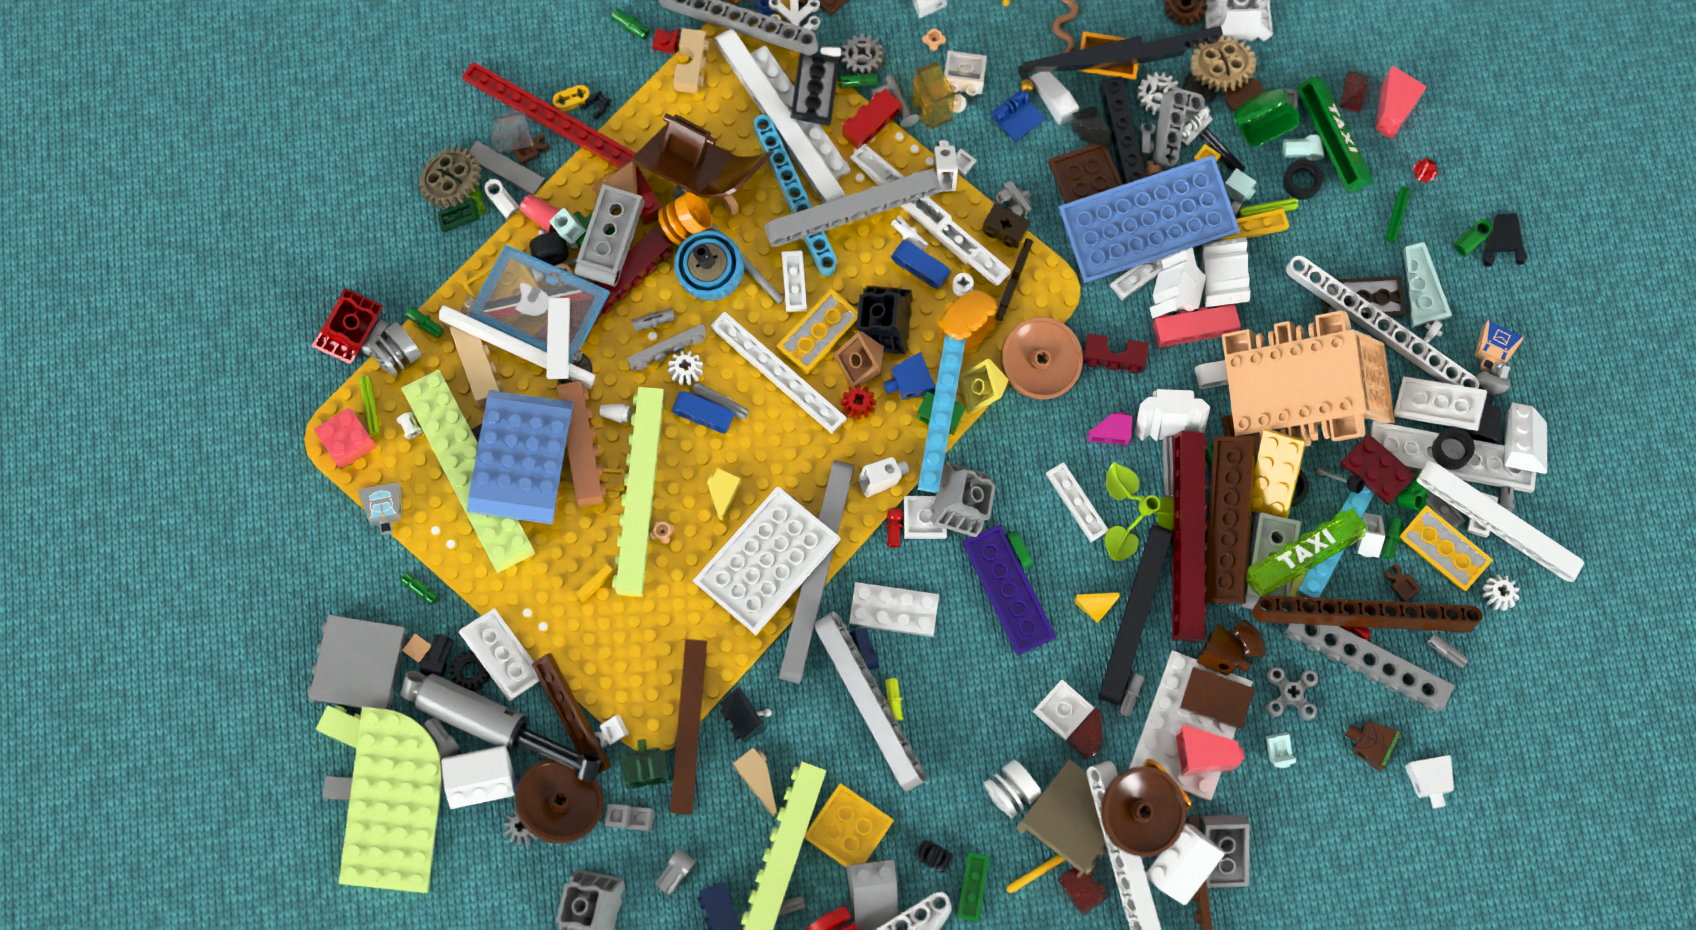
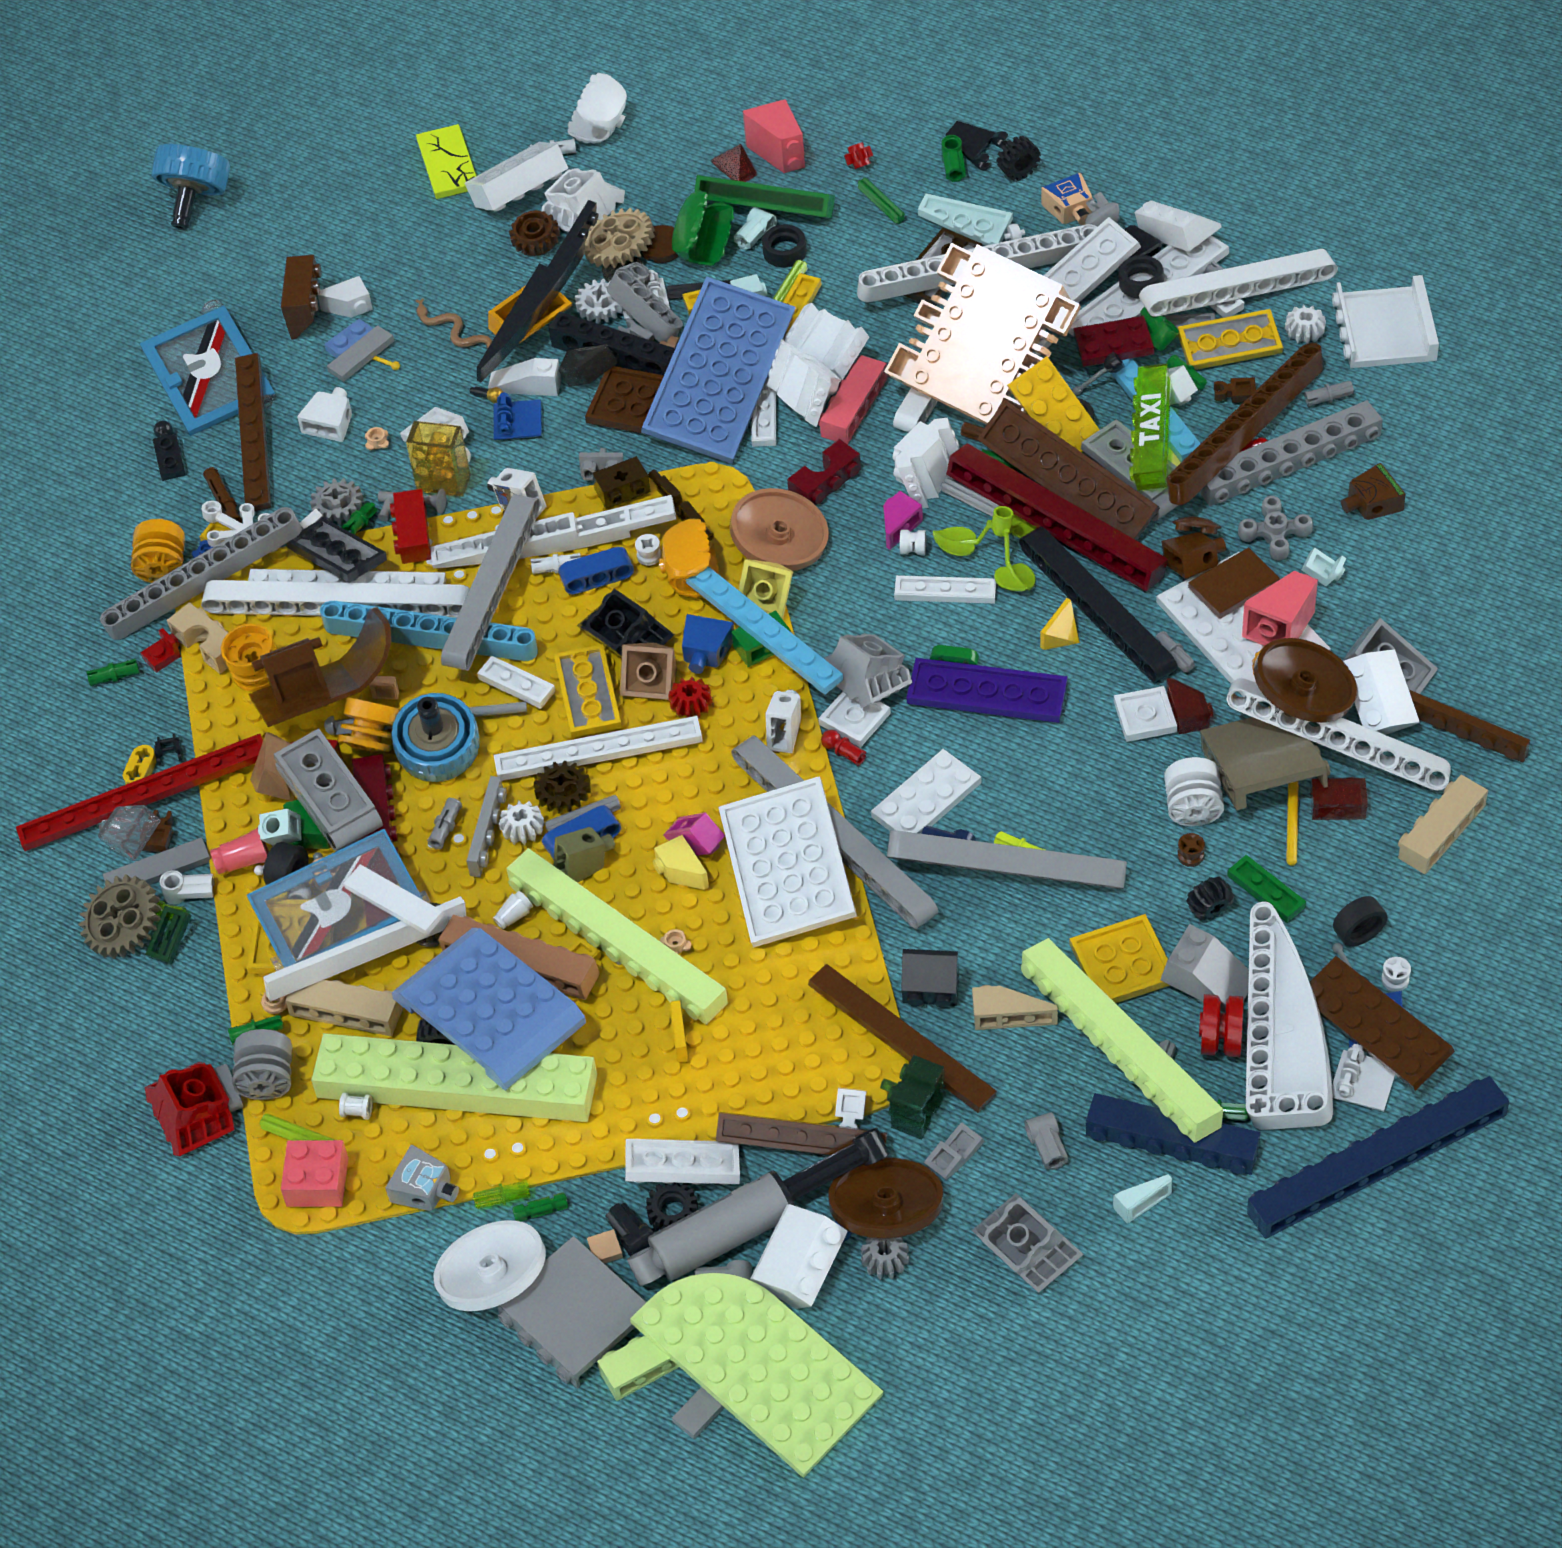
camera: 45 degrees left, 20 degrees down
(351, 591) = (489, 1265): none -> white dish
(411, 559) = (501, 1194): none -> clear neon green axle
(677, 423) = (581, 852): none -> olive torso
(688, 94) = (241, 648): none -> light orange wheel
(735, 367) = (562, 787): none -> dark brown gear
(751, 484) = (698, 831): none -> dark pink slope
(973, 814) = (1186, 845): none -> reddish brown wheel
(1099, 453) = (907, 542): none -> white wheel
(1432, 778) = (1442, 470): white torso -> none
(1505, 284) = (1009, 161): none -> black tyre
(1545, 650) = (1386, 325): none -> white panel

